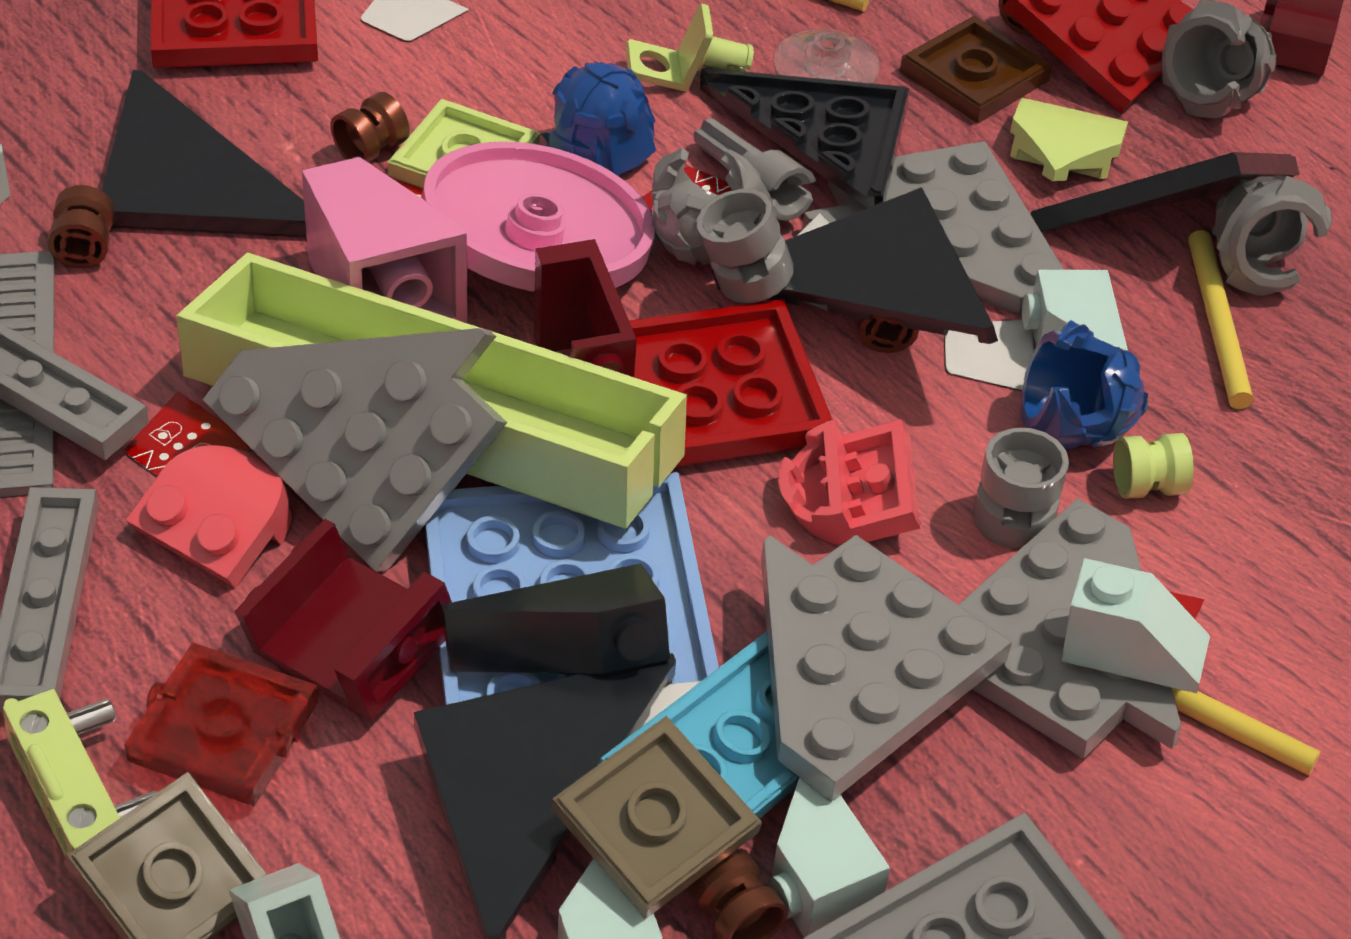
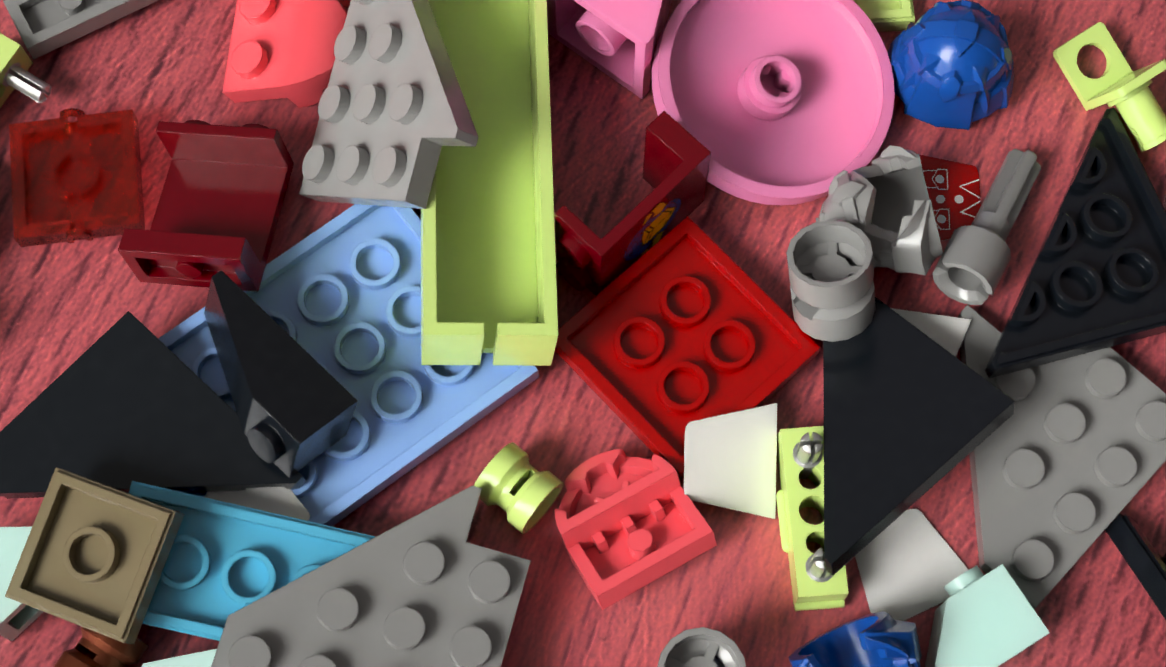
camera: 65 degrees right, 25 degrees up
(787, 522) = (518, 487): none -> yellowish green wheel
(842, 394) = (733, 460): none -> white sticker
(919, 372) = (802, 457): none -> yellowish green piece

